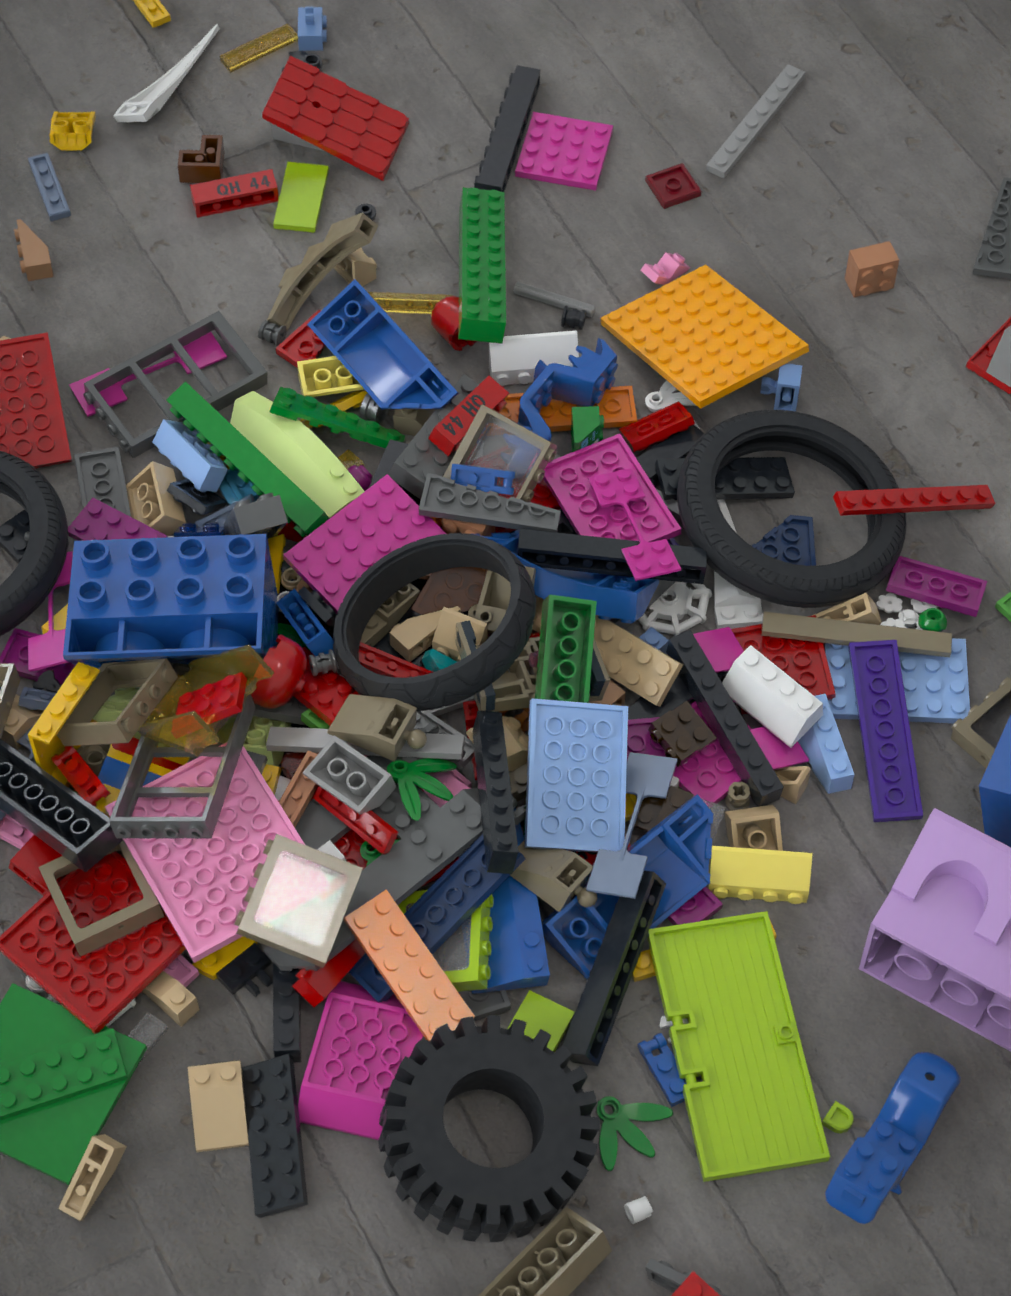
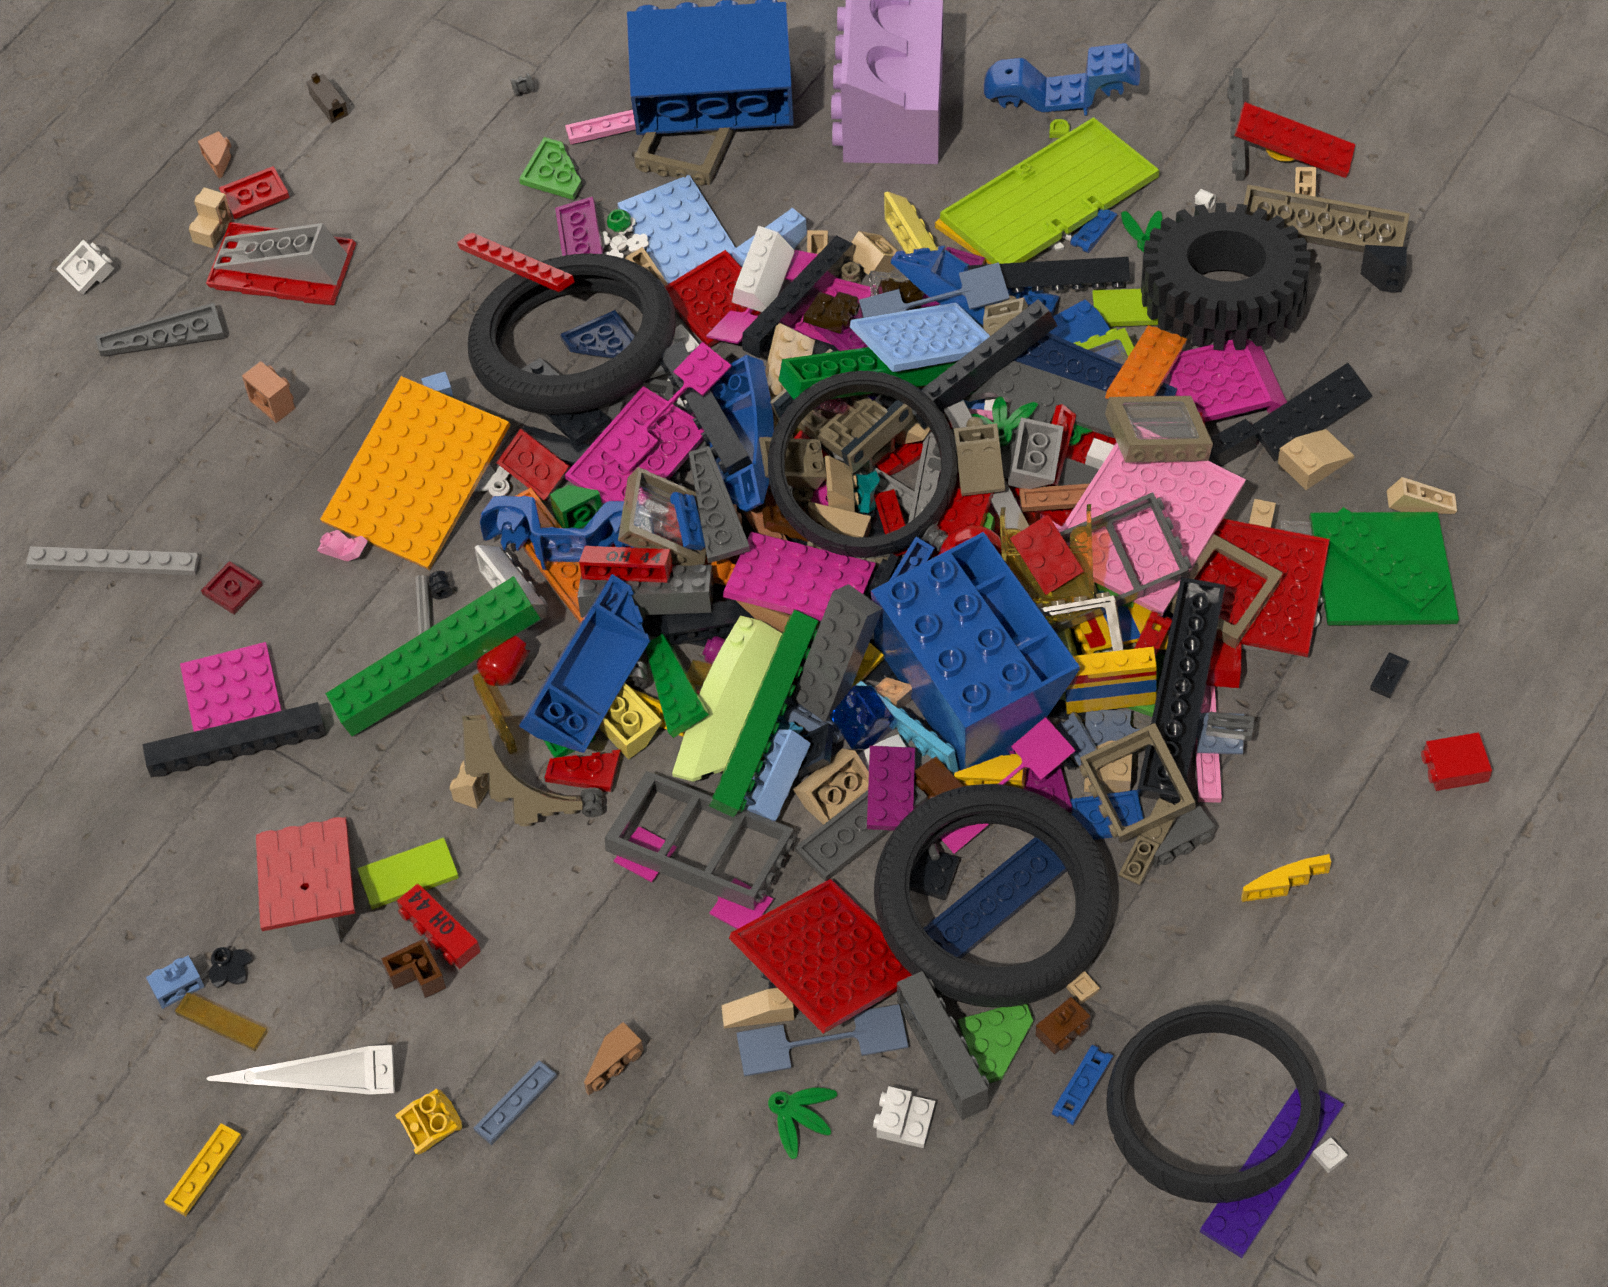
camera: 115 degrees left, 0 degrees up
(368, 209) = (404, 811): black plate -> none
(845, 632) = (664, 256): dark tan tile -> none
(885, 731) = (736, 211): dark purple plate -> none

